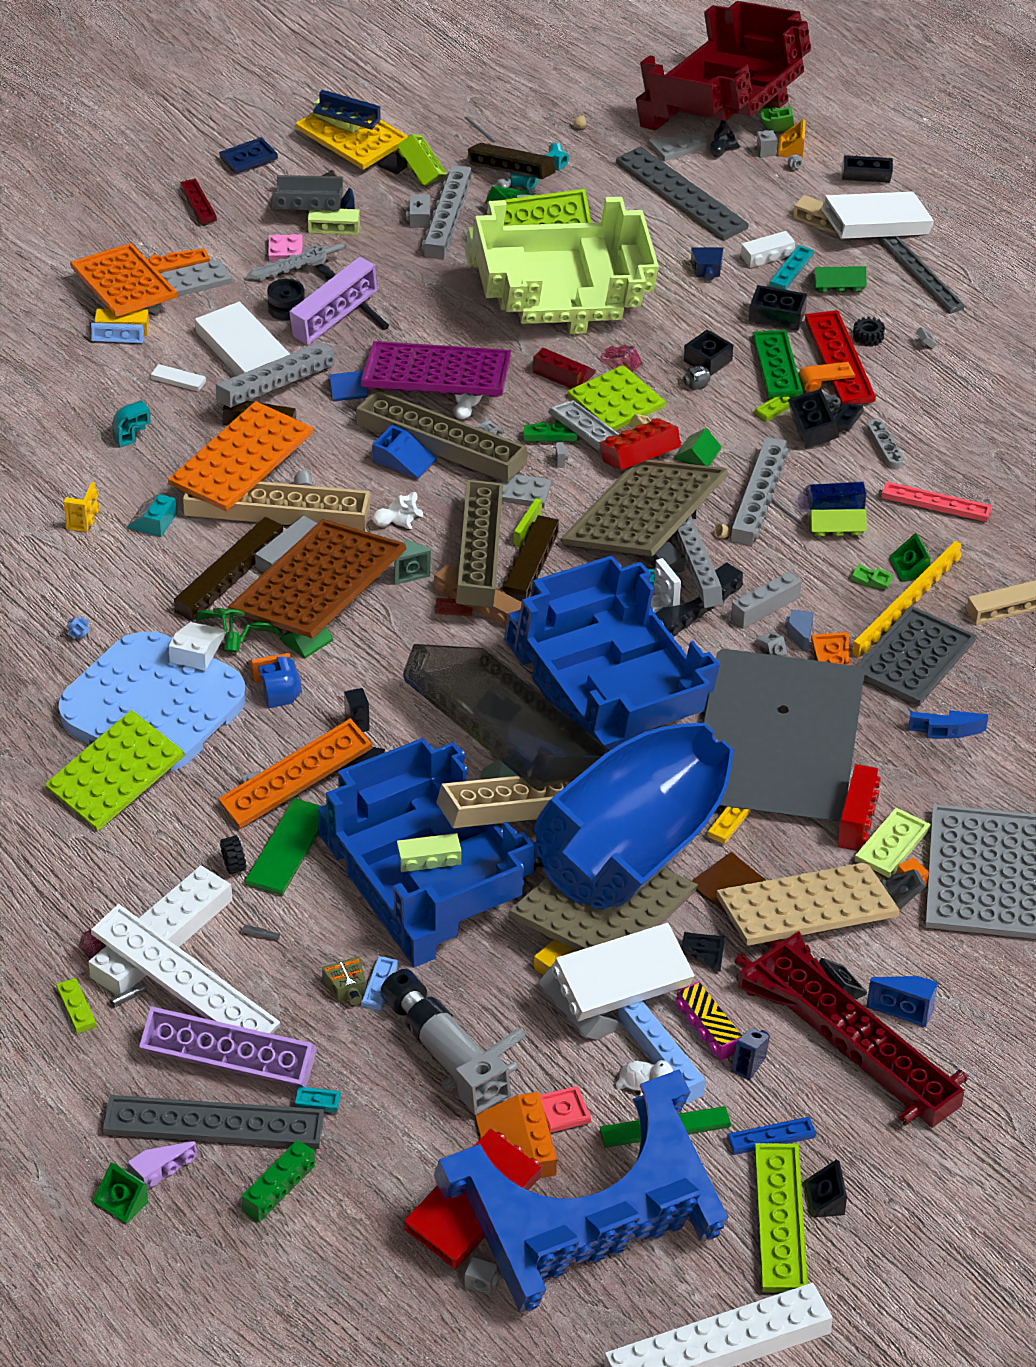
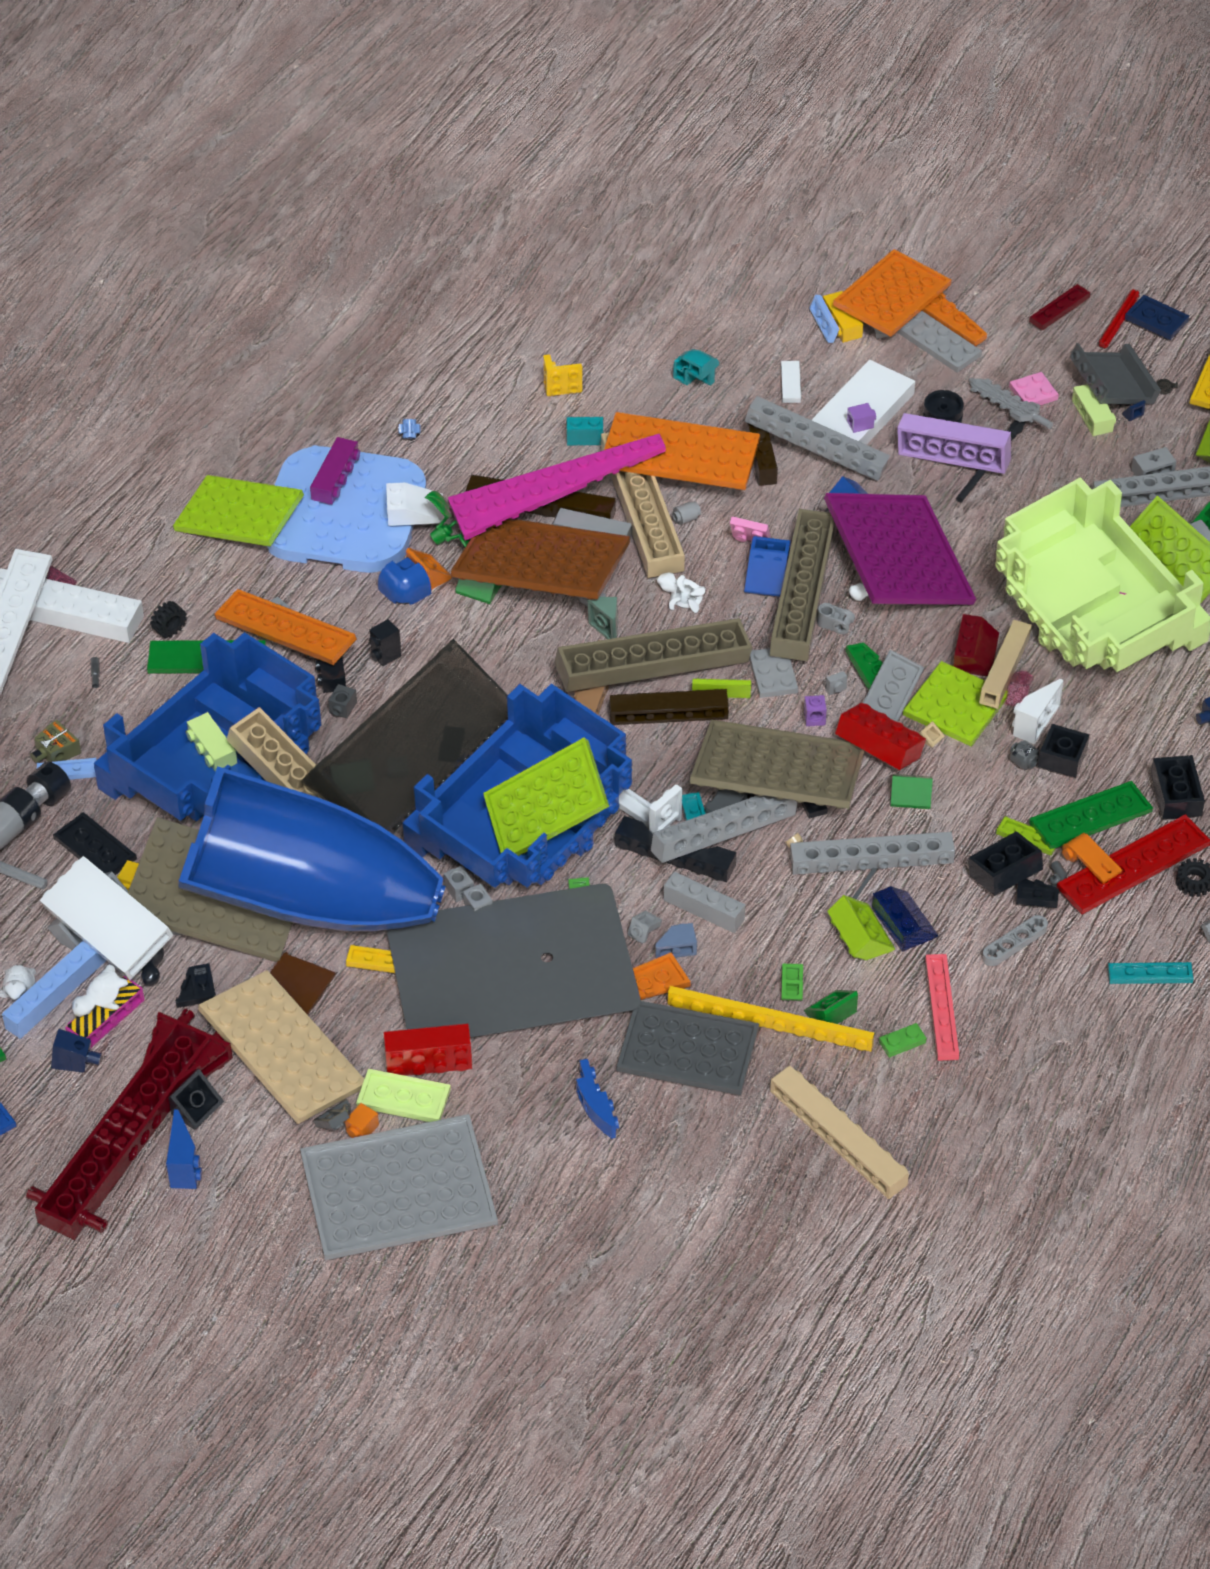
camera: 70 degrees right, 5 degrees up
(115, 683) = (334, 470): none -> magenta brick
(233, 176) = (1118, 318): none -> red axle
(234, 566) = (508, 498): none -> dark pink wing
(271, 340) = (861, 417): none -> medium lavender brick
(359, 448) = (744, 530): none -> bright pink plate
(491, 985) = (89, 839): none -> black tile
(586, 475) = (815, 710): none -> medium lavender brick
(599, 353) = (1005, 664): none -> tan brick
(641, 637) = (546, 798): none -> lime plate
(664, 352) = (1036, 711): none -> white slope
(702, 1002) = (100, 992): none -> white animal
(949, 386) = (1150, 973): none -> teal tile
(958, 532) = (902, 1040): none -> bright green plate

